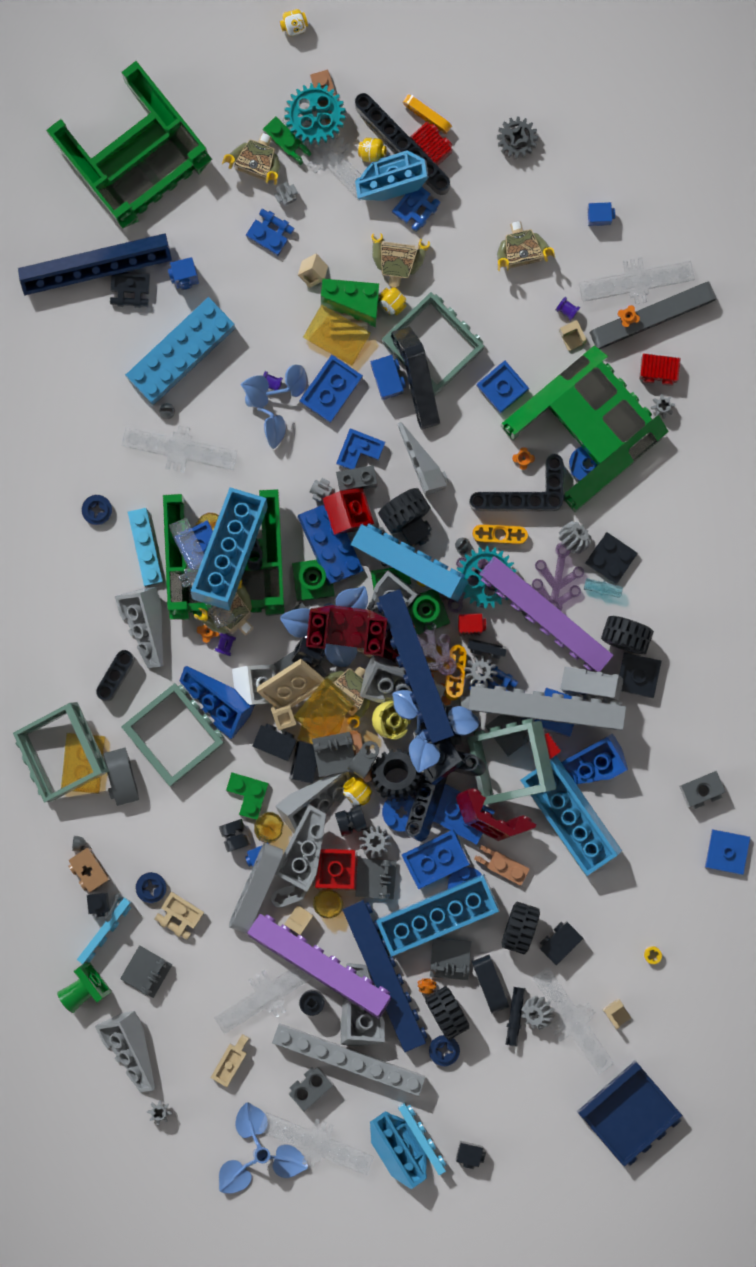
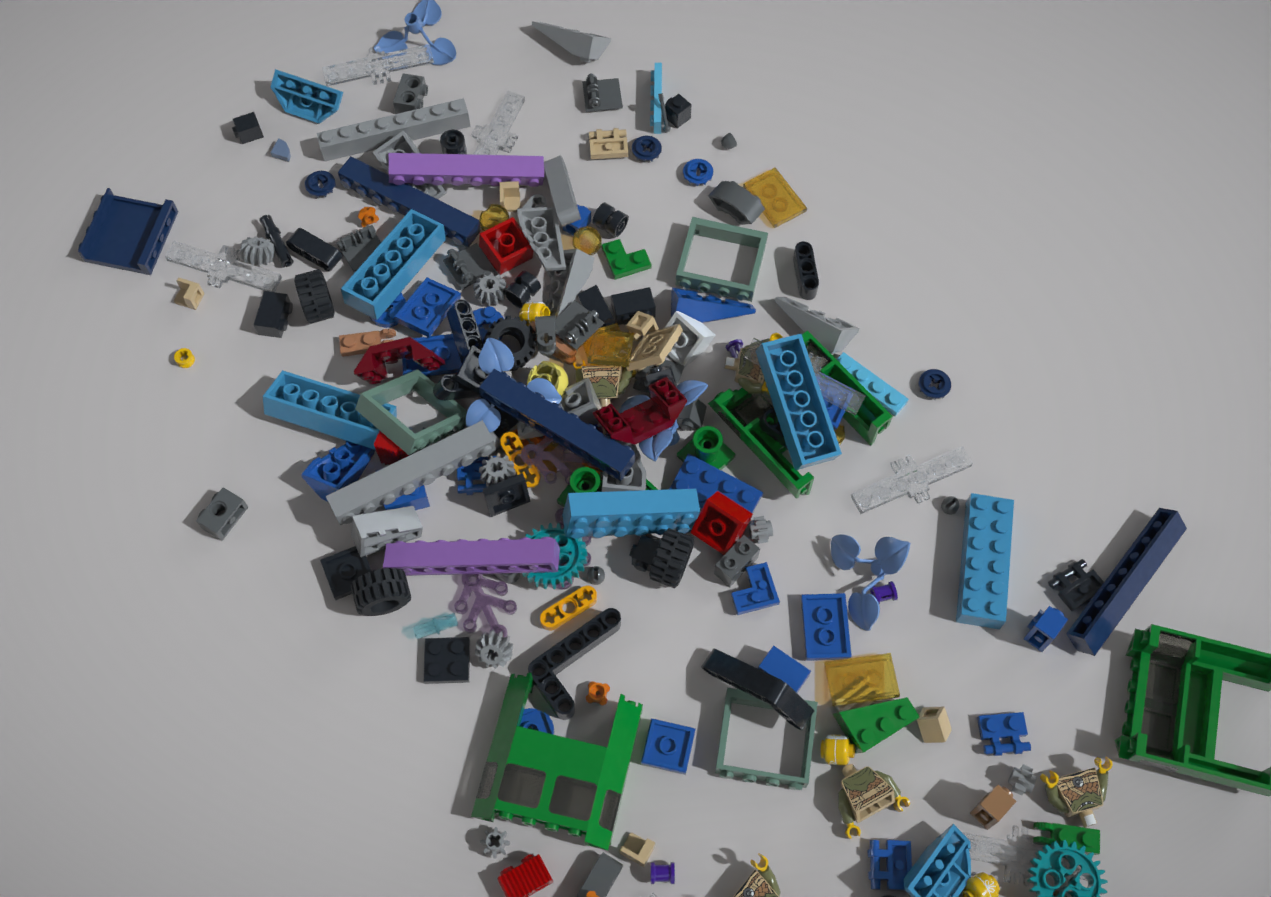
camera: 140 degrees right, 20 degrees down
(87, 742) = (789, 200): sand green window -> none
(88, 985) = (638, 53): green plant -> none
(98, 874) = (704, 128): medium nougat brick -> none
(125, 823) = (705, 169): none -> blue gear
(153, 1111) = (516, 15): light grey gear -> none
(230, 1062) = (487, 76): tan plate -> none
(321, 190) = (993, 806): none -> medium nougat brick
(427, 470) = (677, 613): light grey wedge -> none
(427, 1145) = (294, 115): medium azure plate -> none
(447, 1012) = (334, 200): black tyre -> none
(454, 1111) = (281, 150): none -> sand blue tile
(471, 624) = (535, 504): red brick -> none
(727, 852) = (166, 480): blue plate -> none

